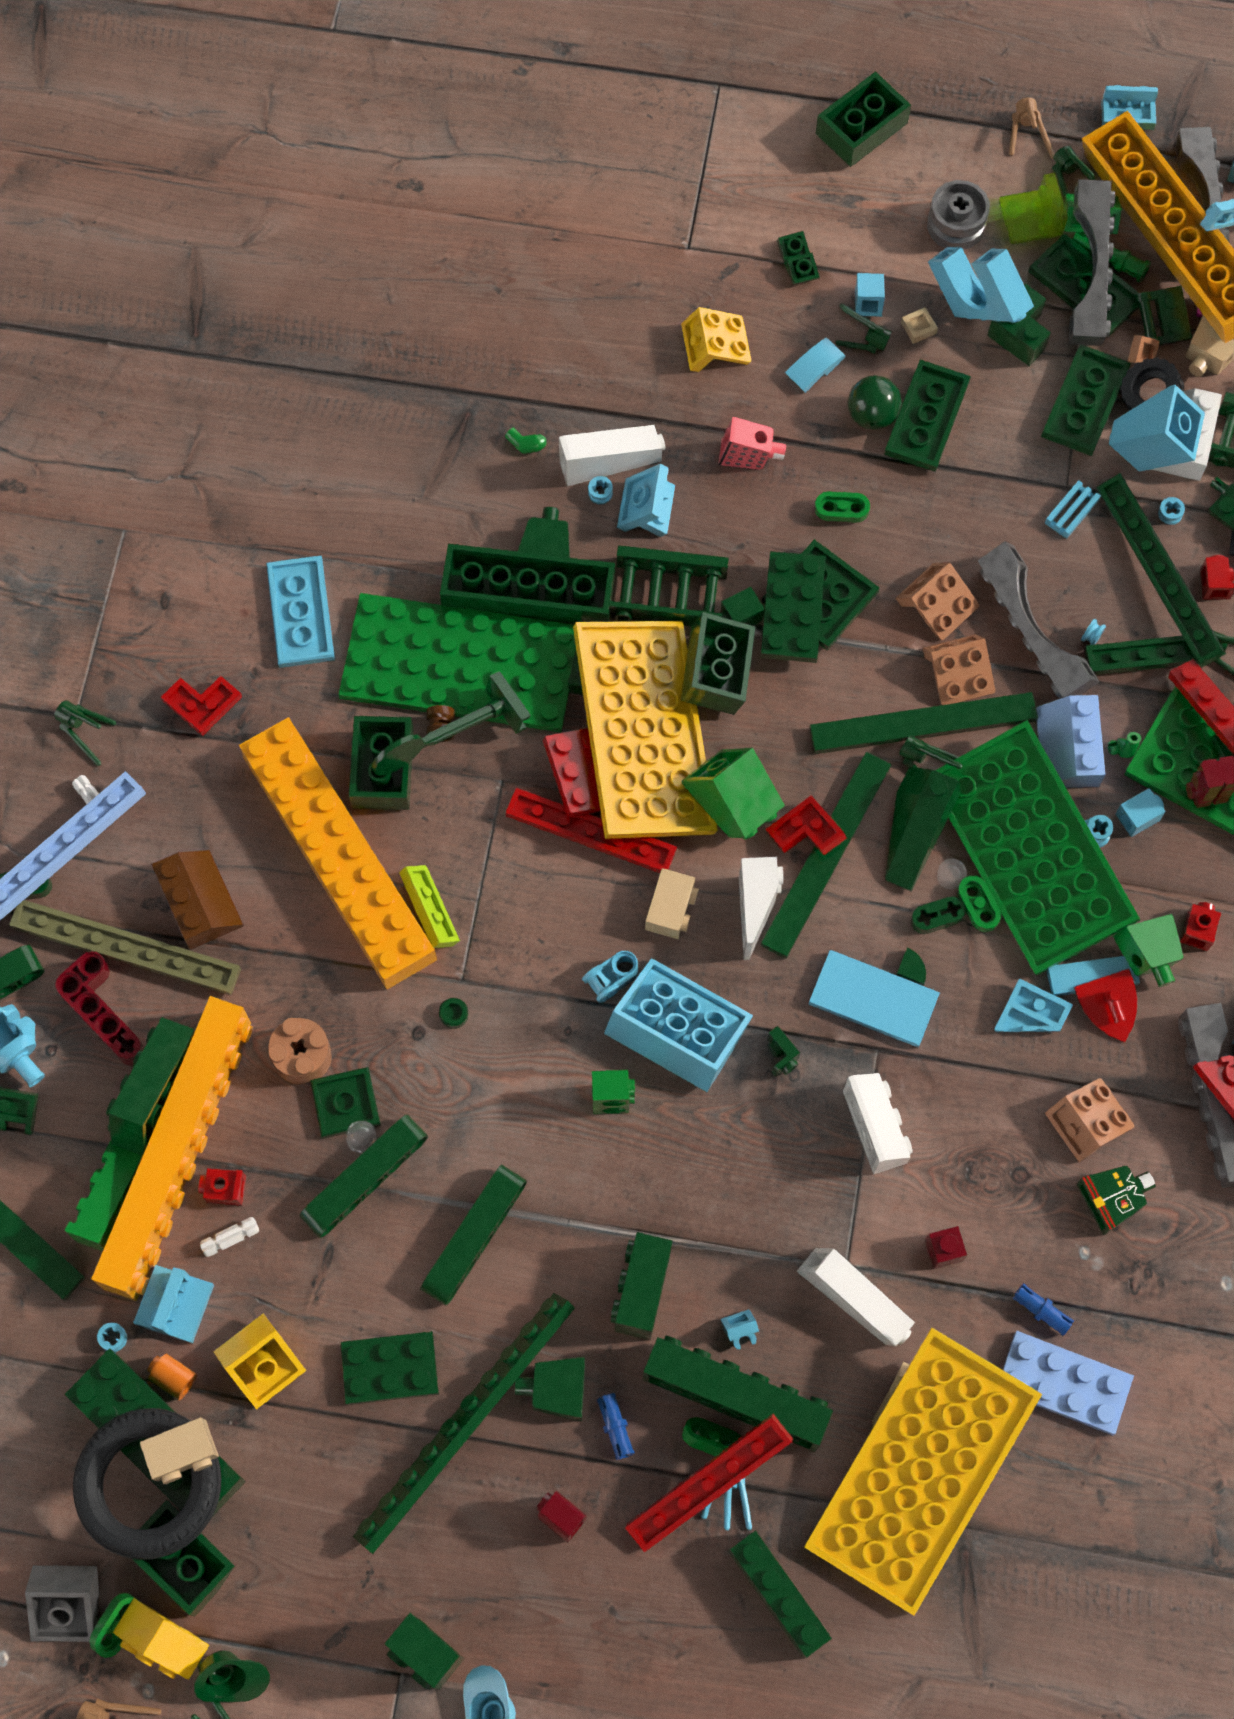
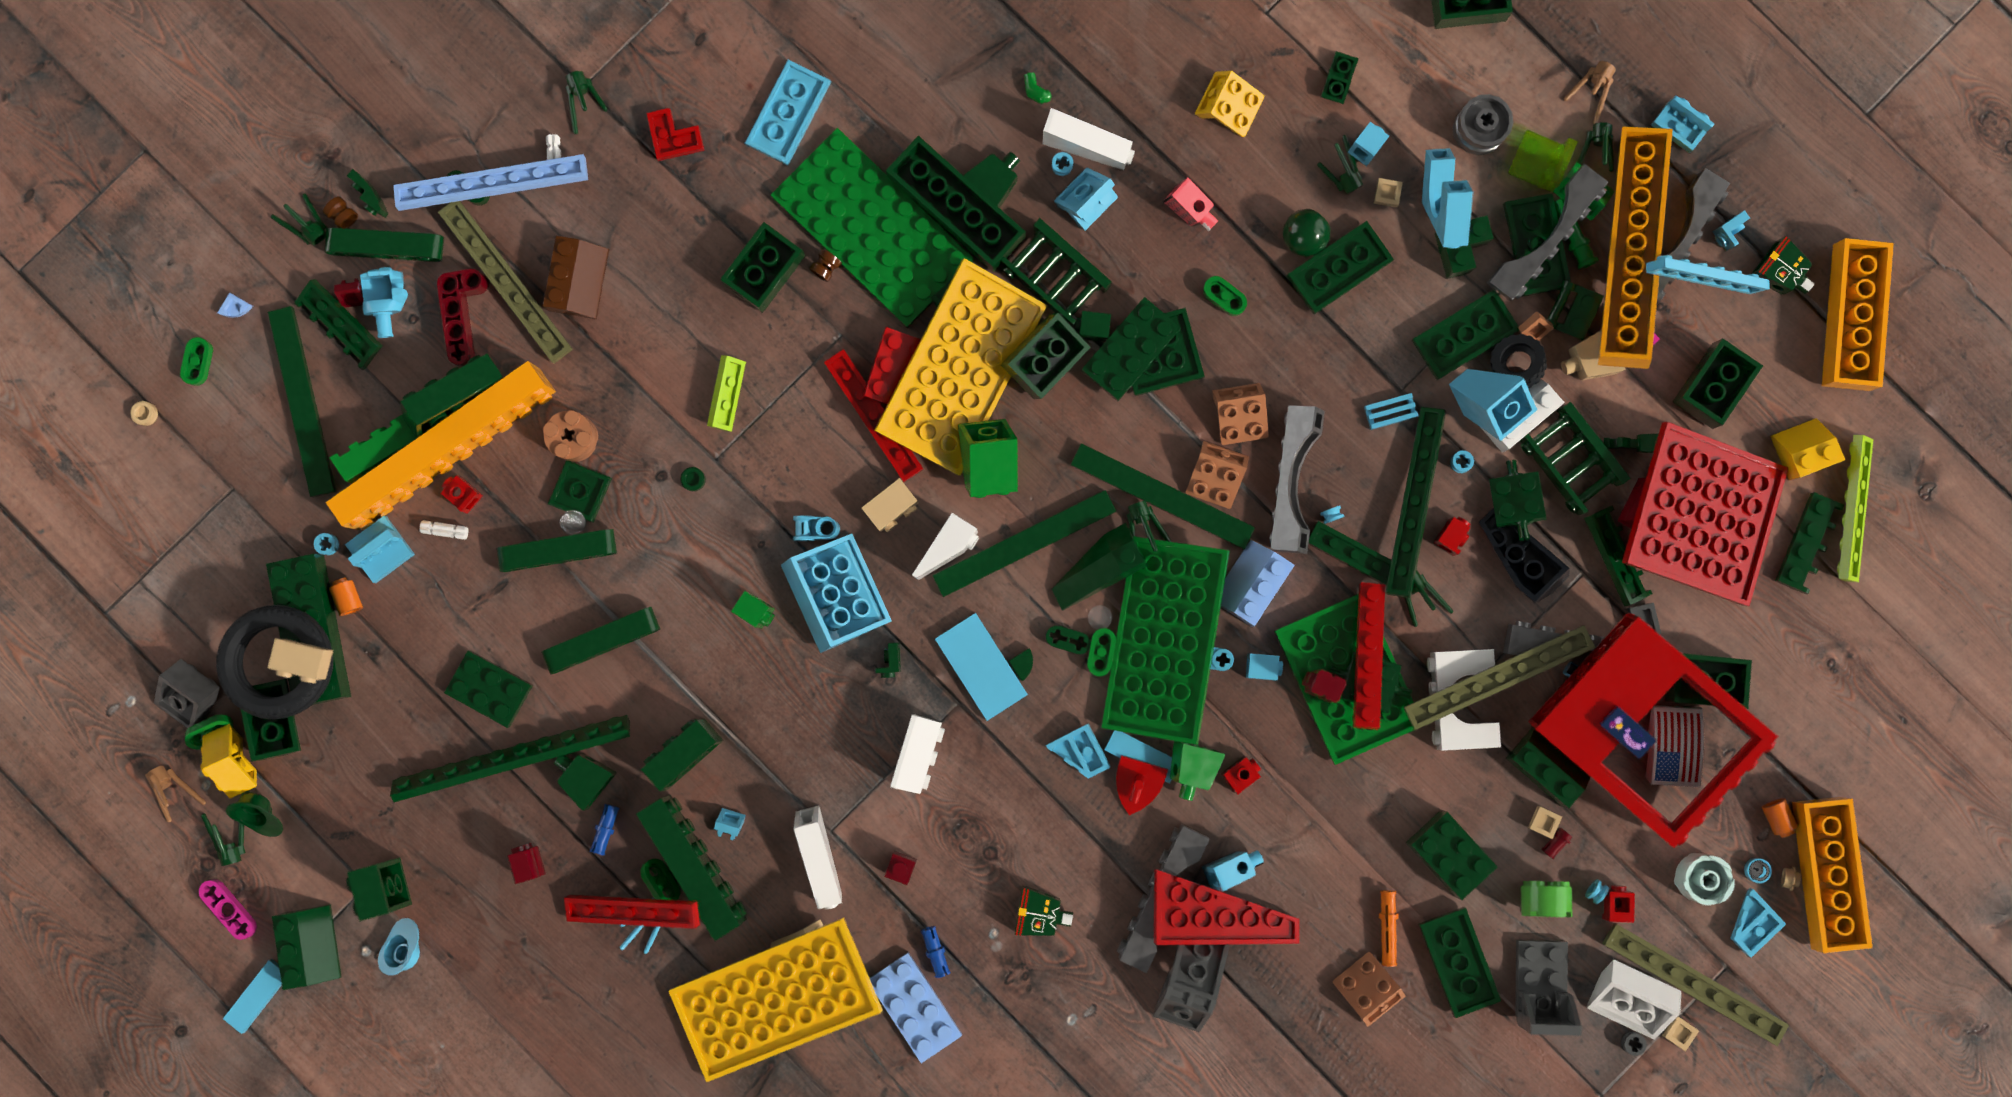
camera: 40 degrees right, 15 degrees up
(259, 1361) = (407, 626): yellow slope -> none
(338, 853) = (690, 311): light orange brick -> none
(503, 703) = (873, 283): dark green piece -> none
(780, 1594) = (630, 1009): dark green brick -> none
(804, 821) = (1025, 512): red plate -> none
(815, 363) = (1288, 170): medium azure slope -> none
(1089, 1119) = (1064, 851): nougat bracket -> none
(1125, 747) = (1289, 613): green arm -> none

